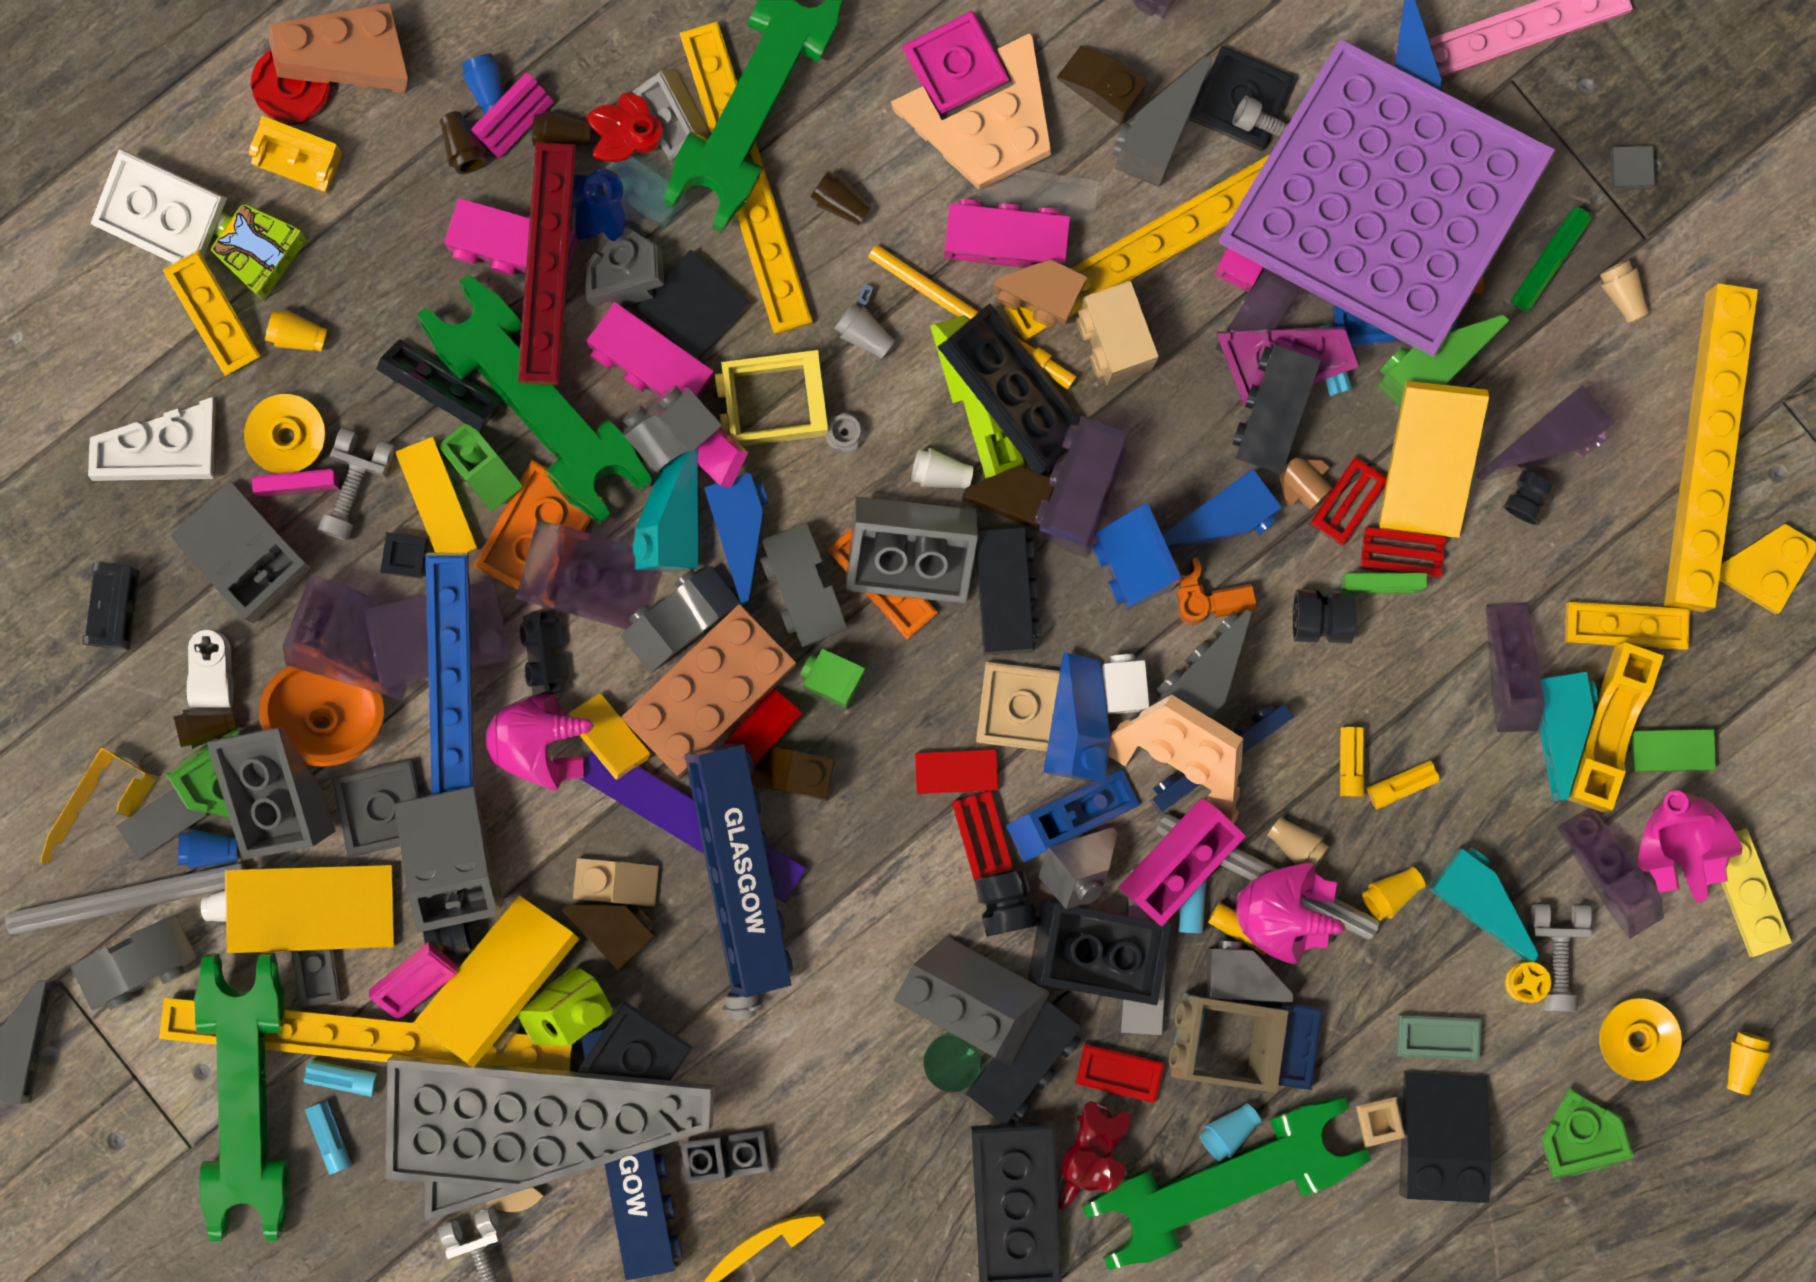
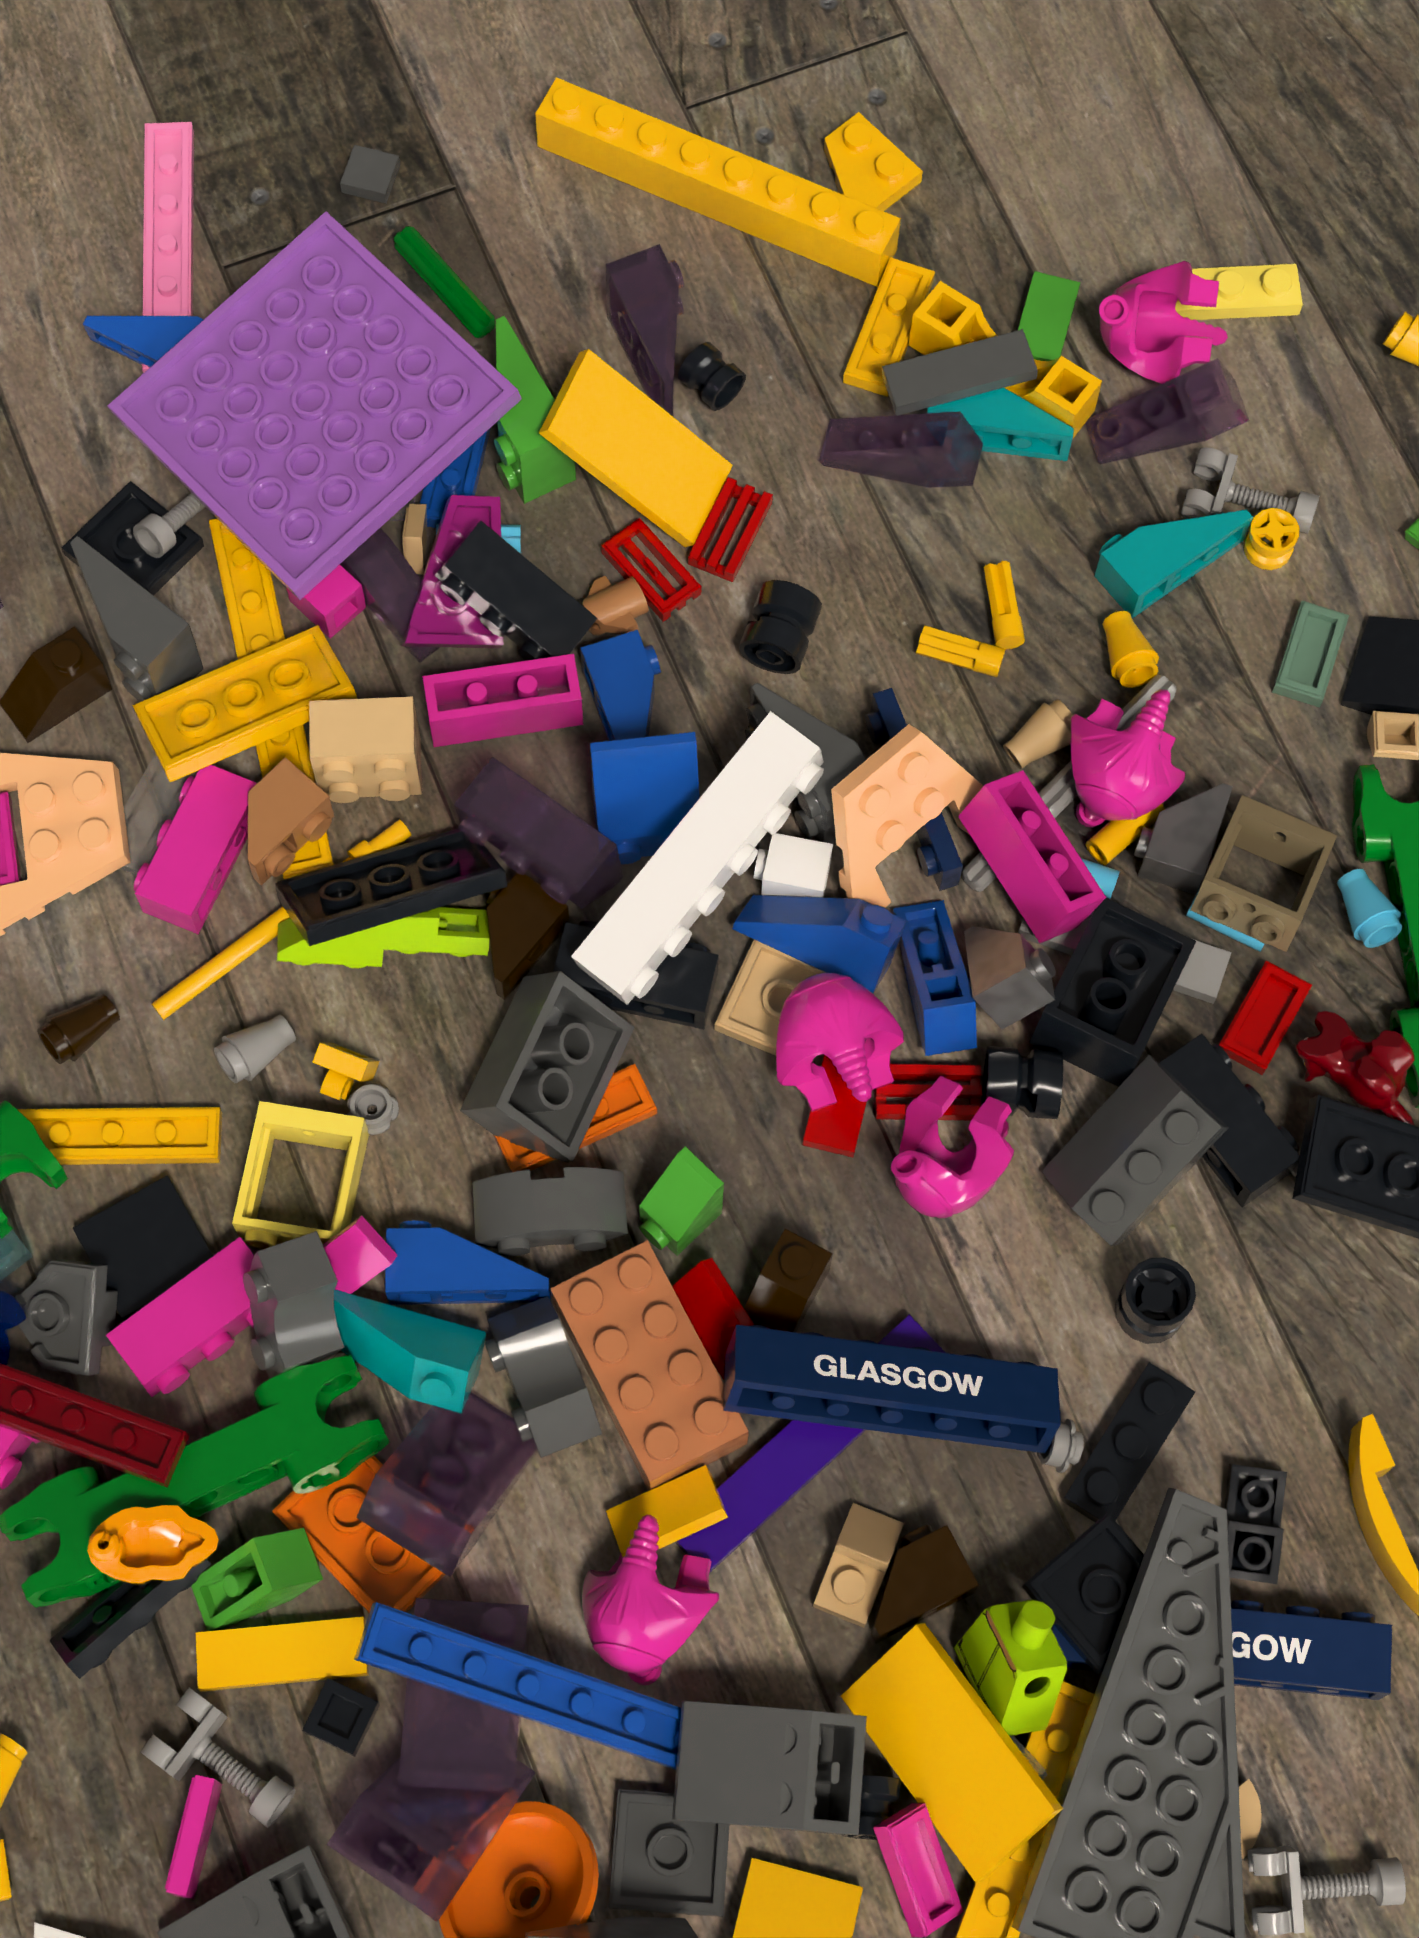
camera: 70 degrees left, 15 degrees down
(268, 422) = (93, 1825): yellow dish -> none
(472, 386) = (150, 1544): none -> light orange arm
(539, 637) = (504, 1568): black hinge -> none
(757, 1053) = (1129, 1445): none -> black plate
(865, 295) = (208, 1035): sand blue piece -> none
(865, 1044) = (1155, 1300): none -> black wheel
(868, 401) = (343, 1068): none -> yellow tile
(914, 858) = (946, 1181): none -> dark pink piece
(940, 471) = (460, 1008): white cone -> none
(951, 1063) = (1202, 1210): clear green piece -> none
(992, 746) = (846, 1024): none -> dark pink piece
(1092, 612) = (700, 858): none -> white brick
(1128, 230) = (242, 703): none -> yellow tile
(1192, 423) = (503, 700): none -> dark pink brick
(1196, 606) = (725, 738): orange bar -> none
(1300, 1045) = (1284, 796): dark blue plate -> none
(1312, 312) = (415, 536): none -> tan tile
(1383, 582) = (760, 554): bright green tile -> none
(1586, 694) = (959, 372): none -> dark grey tile
(1625, 290) = (506, 217): tan cone -> none
(1660, 1039) = (1369, 424): yellow dish -> none

